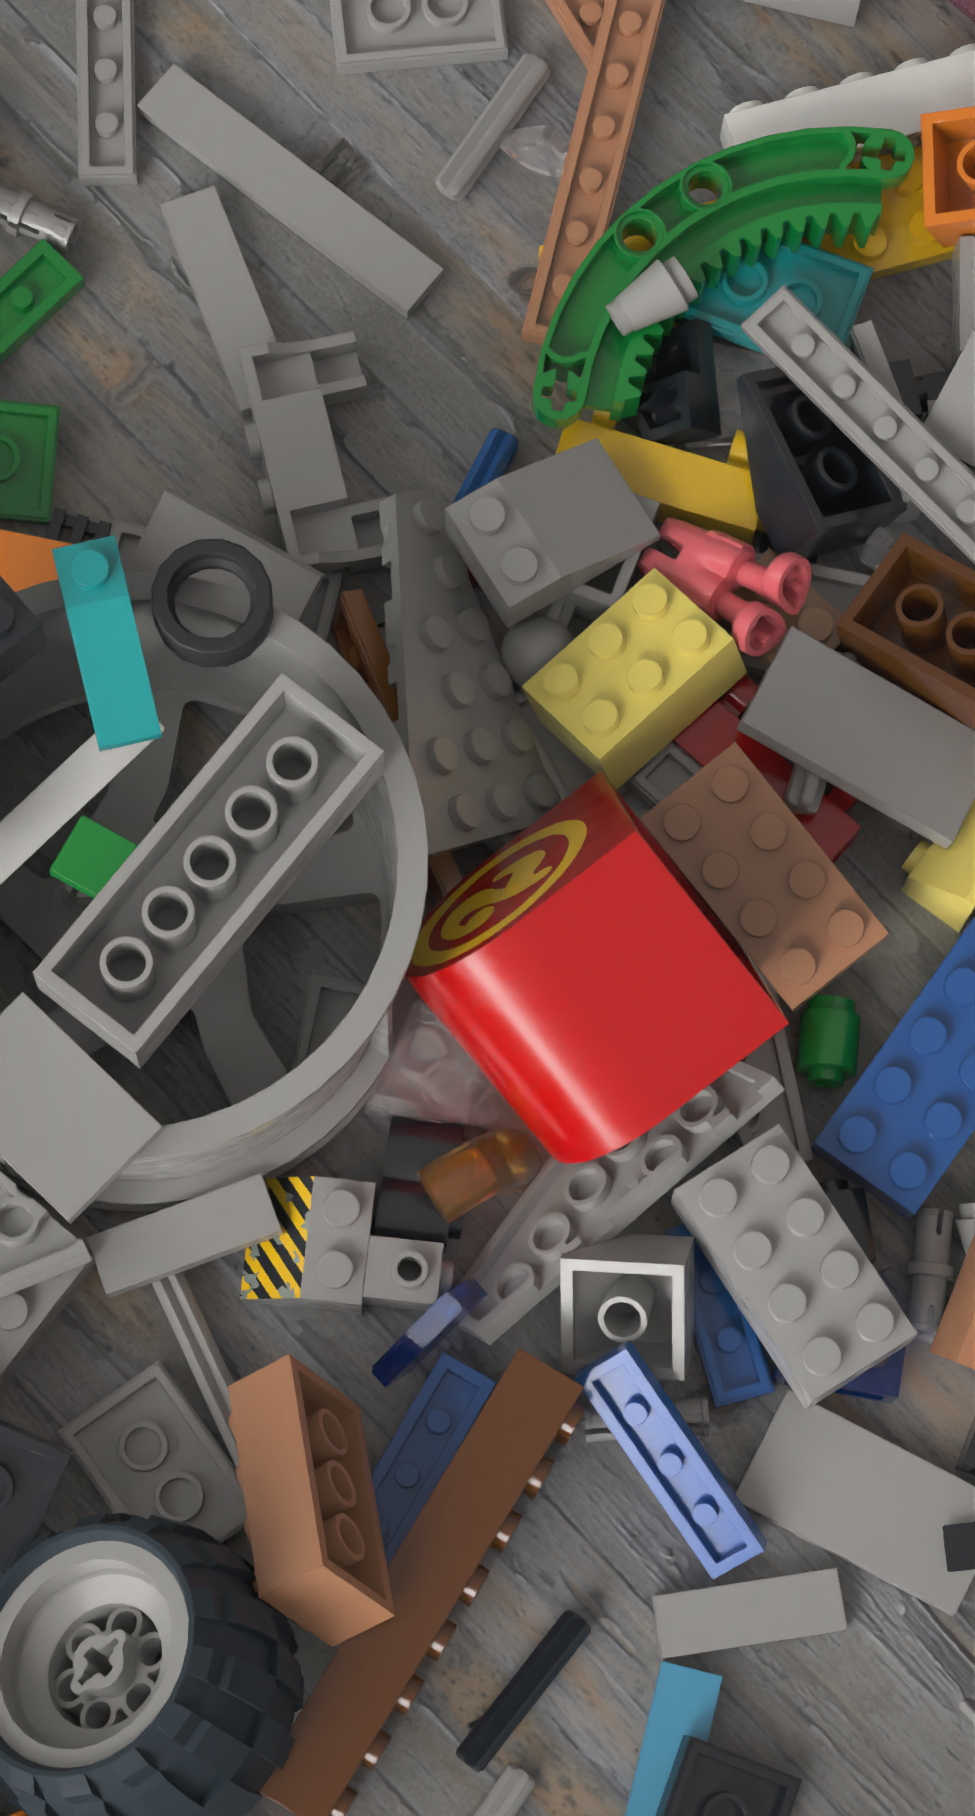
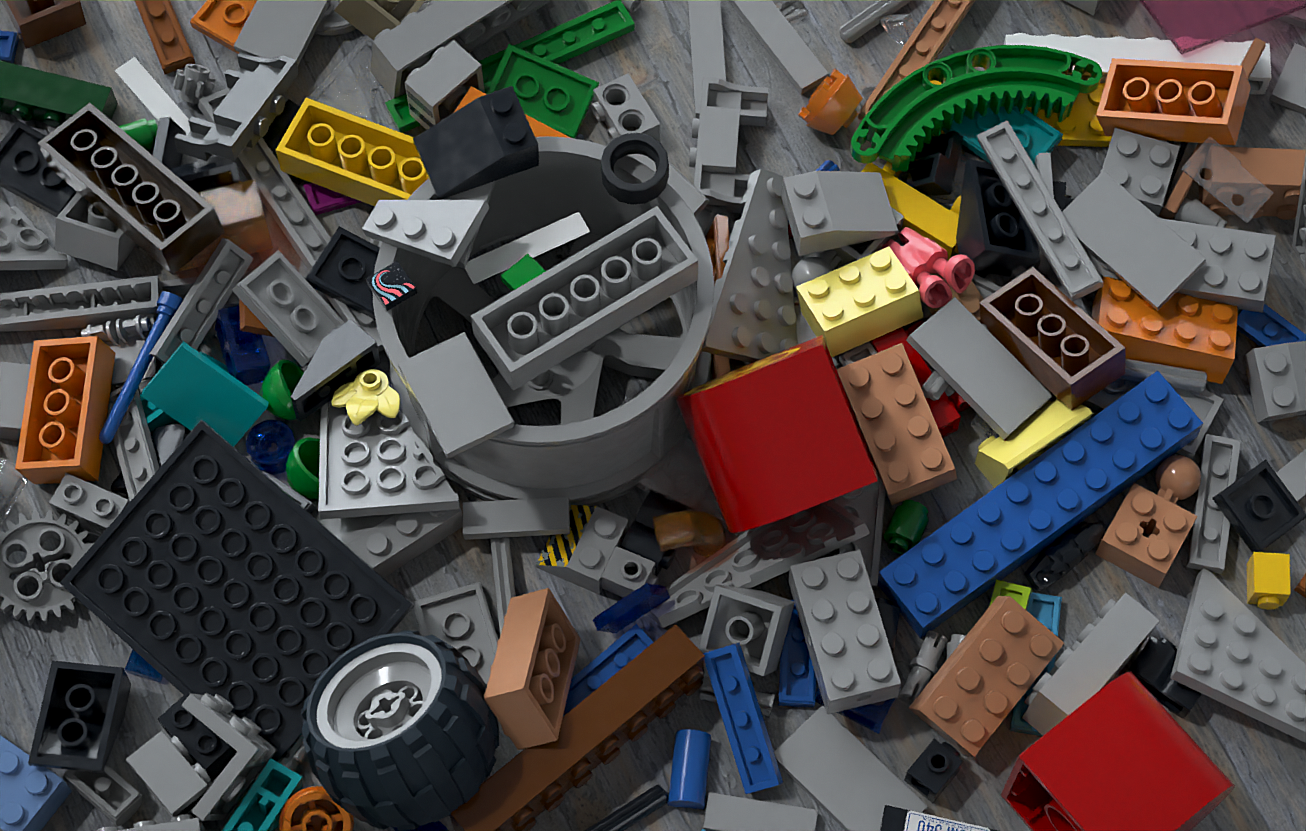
camera: 25 degrees right, 10 degrees down
(107, 643) = (571, 171): teal slope -> none
(136, 443) = (631, 113): none -> light grey brick
(470, 328) = (832, 104): none -> orange cone
(608, 1567) = (689, 769): none -> blue brick
(652, 297) = (932, 105): light grey cone -> none

